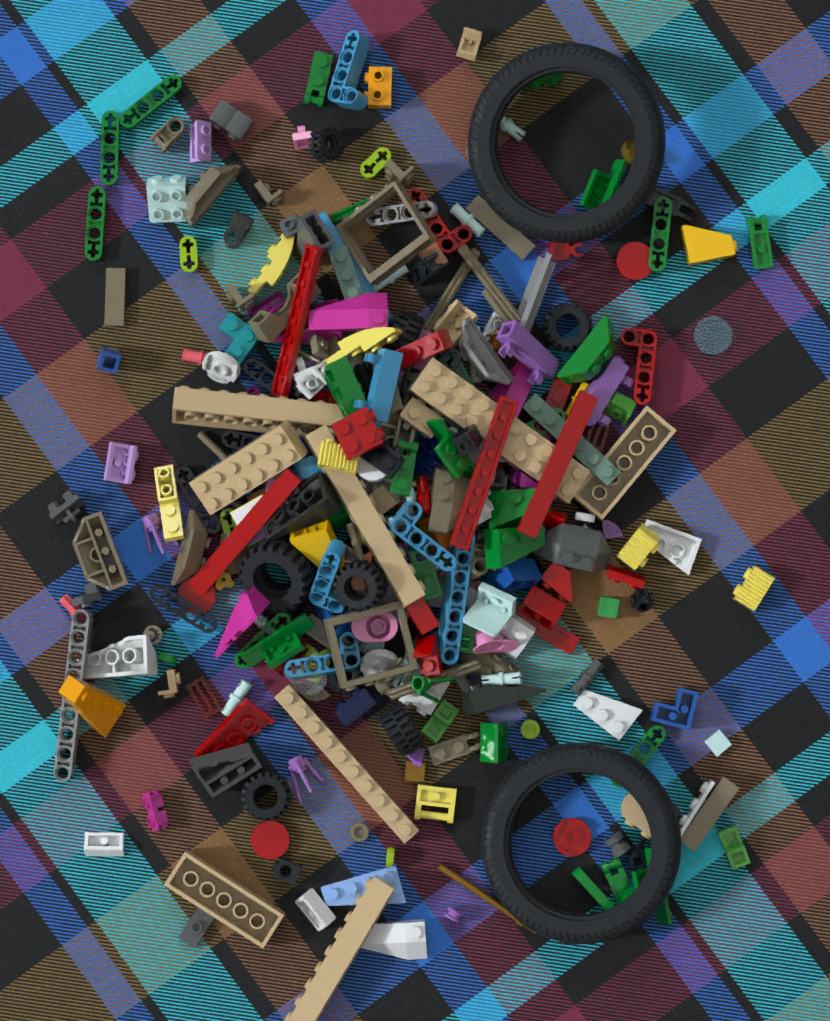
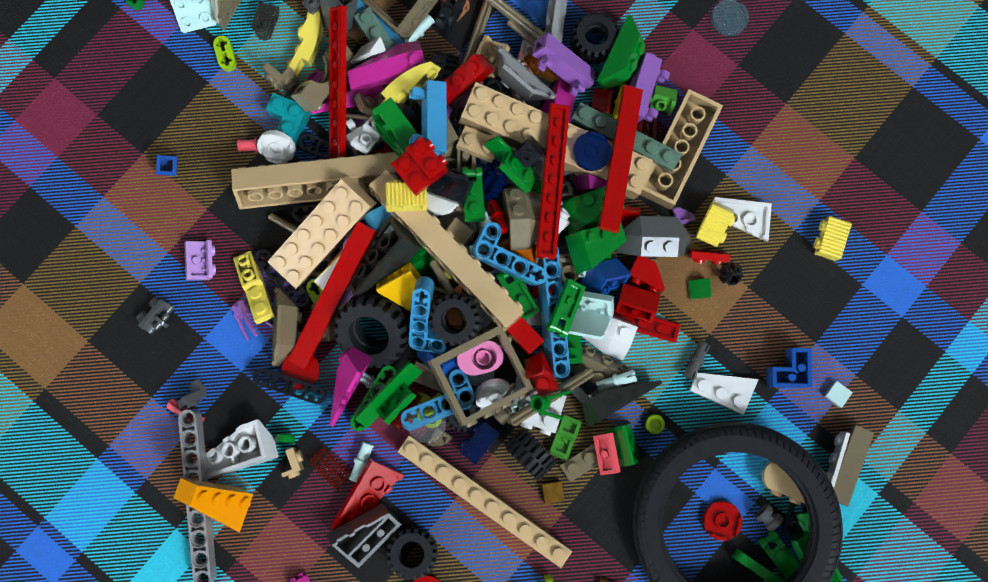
camera: 15 degrees left, 5 degrees down
(98, 224) = (128, 46): green beam -> none
(99, 553) = (194, 350): dark tan wedge -> none
(115, 297) = (163, 108): dark tan tile -> none
(155, 634) = (267, 418): dark tan tile -> none
(227, 583) = (329, 350): yellow plate -> none
(297, 766) = (436, 513): medium lavender plant -> none
(334, 292) = (369, 50): none -> white slope
(359, 832) = (513, 566): dark tan tile -> none
(416, 756) = (552, 478): medium lavender tile -> none
(436, 797) = (580, 513): light yellow plate -> none
(467, 599) = (566, 308): none -> green plate
(474, 746) = (606, 454): none -> coral plate
(489, 644) = (600, 348): bright pink piece -> none
(530, 451) = (591, 151): none -> clear blue tile
(584, 517) = (655, 209): white tile -> none
(640, 367) = (672, 59): red beam -> none
(642, 758) = (761, 419): green beam -> none
(733, 846) = (880, 492): bright green slope -> none

